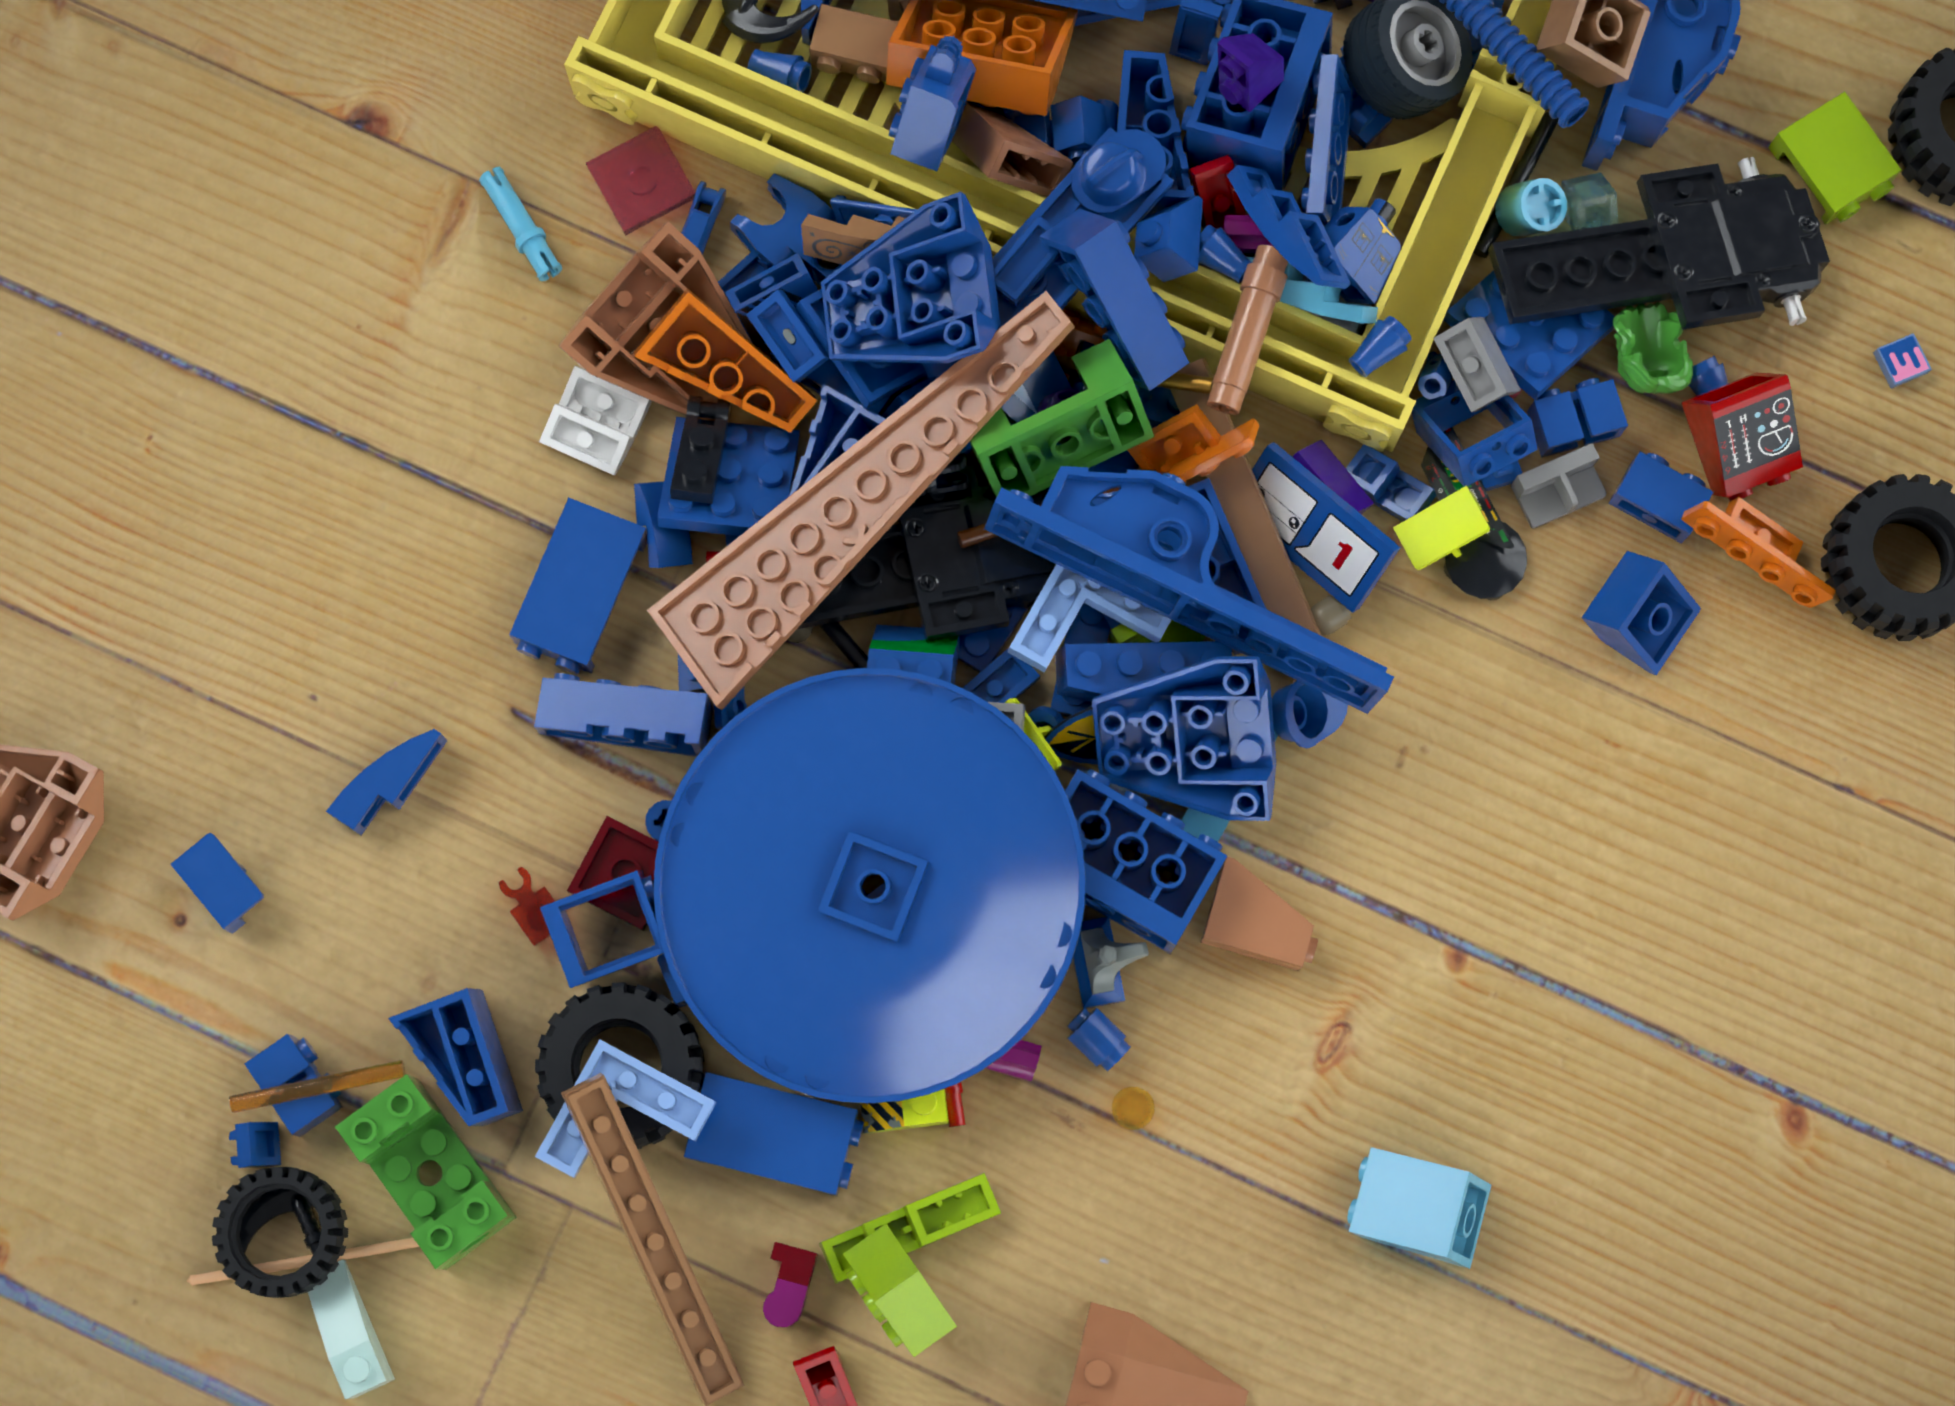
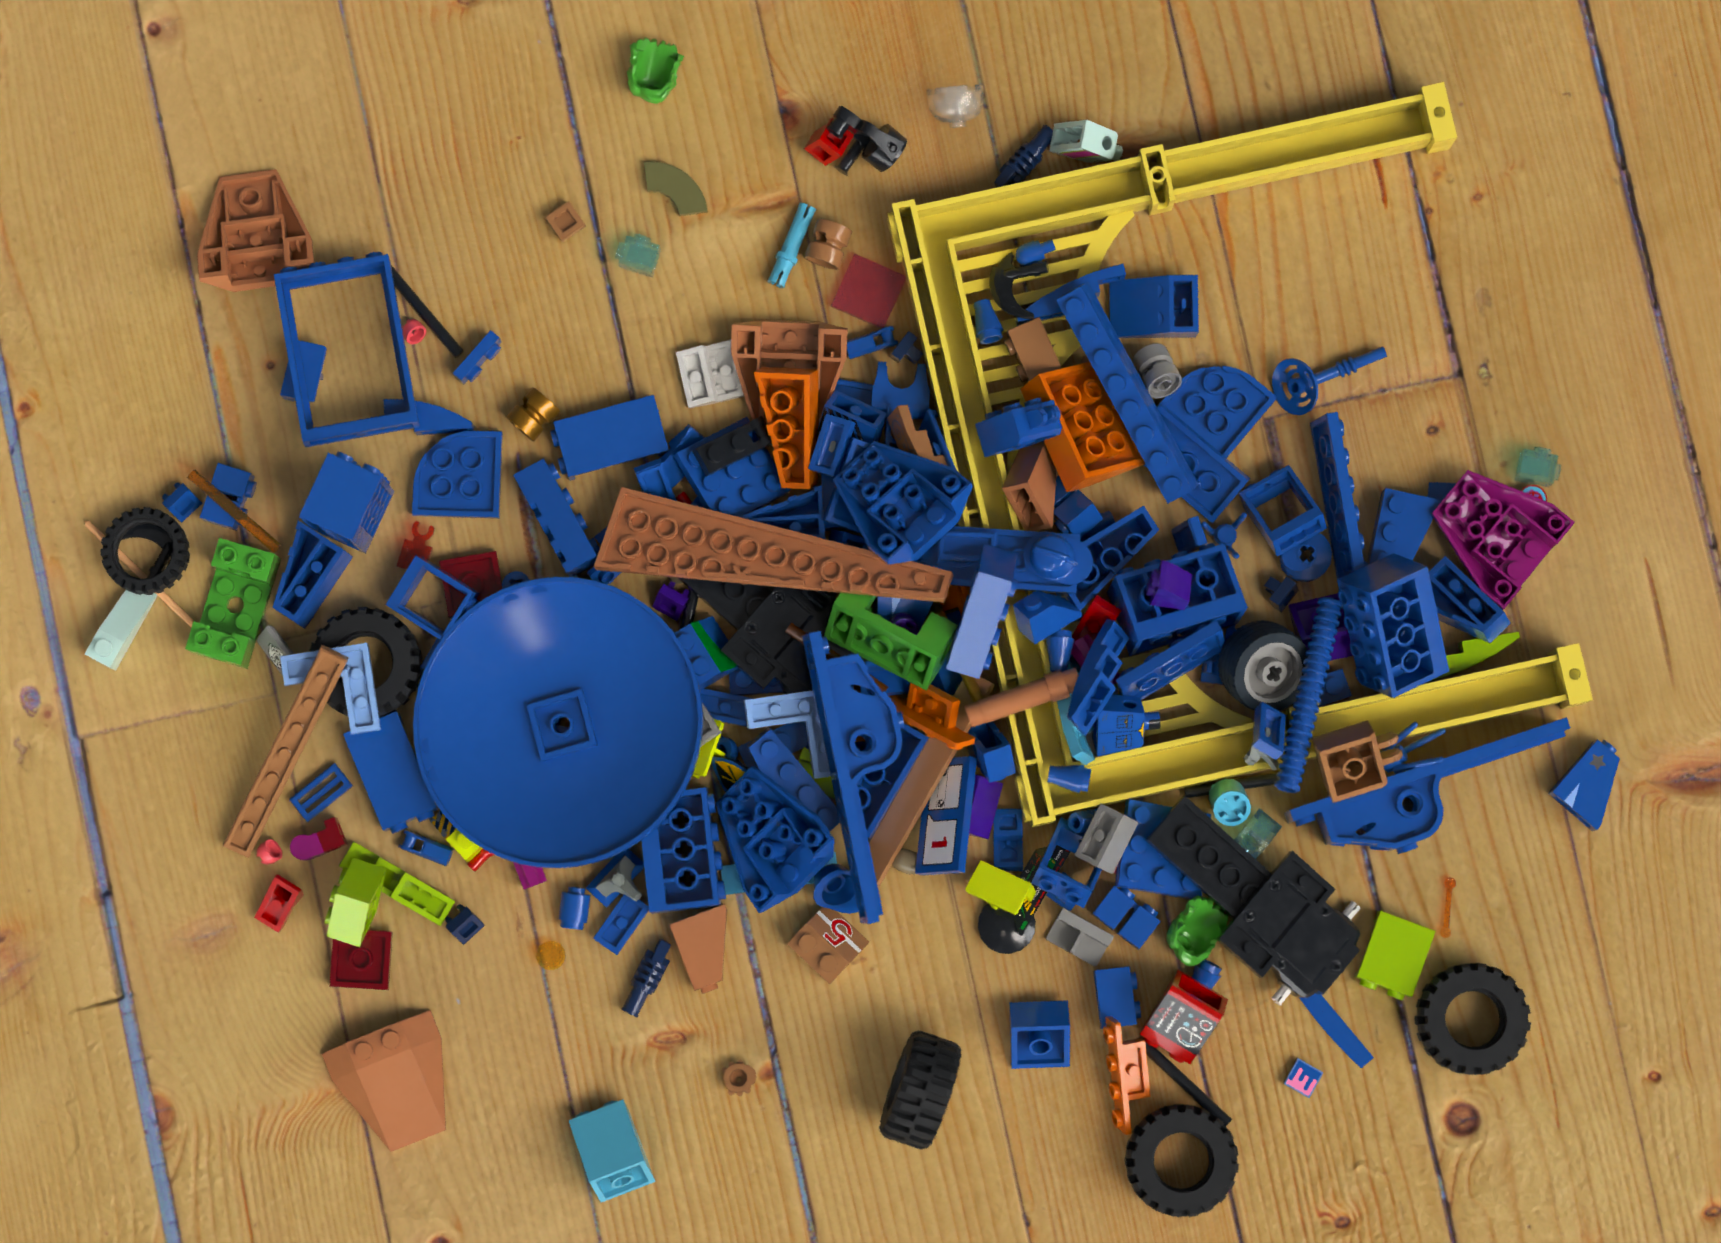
camera: 55 degrees right, 5 degrees up
(136, 744) = (318, 274): none -> blue window
(196, 225) = (653, 69): none -> bright green hair
(258, 694) = (426, 315): none -> black bar
(283, 720) = (418, 335): none -> coral hinge
(289, 453) = (565, 221): none -> medium nougat plate
(350, 301) = (677, 186): none -> olive tile
(369, 686) = (486, 349): none -> blue plate
(394, 399) = (638, 255): none -> clear light blue brick
(412, 937) = (347, 501): none -> blue brick
(437, 93) = (826, 146): none -> red brick
(481, 653) = (533, 414): none -> pearl gold wheel
(488, 793) = (460, 477): none -> blue plate
(491, 44) = (879, 146): none -> black piece
(520, 1164) = (273, 646): none -> light grey slope
(555, 185) = (828, 242): none -> medium nougat wheel
(665, 568) = (654, 479): none -> blue tile
(731, 1201) = (340, 777): none -> blue tile
(741, 184) = (907, 349): none -> dark blue tile
(756, 1354) = (269, 852): none -> coral hinge
(822, 655) = (670, 601): none -> dark purple tile
(901, 1157) = (430, 850): none -> blue bar
(979, 1343) = (364, 965): none -> dark red plate
(1020, 1182) = (464, 925): none -> dark blue tile
(1157, 996) = (621, 924): none -> blue plate
(1243, 1012) = (647, 977): none -> dark blue hinge
(1283, 418) = (992, 752): none -> blue piece
(1359, 776) = (828, 943): none -> medium nougat slope
(1444, 982) = (745, 1072): none -> medium nougat animal
(1501, 94) = (1267, 736): none -> blue piece
(1620, 785) = (920, 1090): none -> black tyre
(1795, 47) = (1449, 883): none -> clear orange hinge
(1814, 493) = (1186, 1084): none -> black bar
(1873, 285) = (1337, 1029): none -> blue sticker

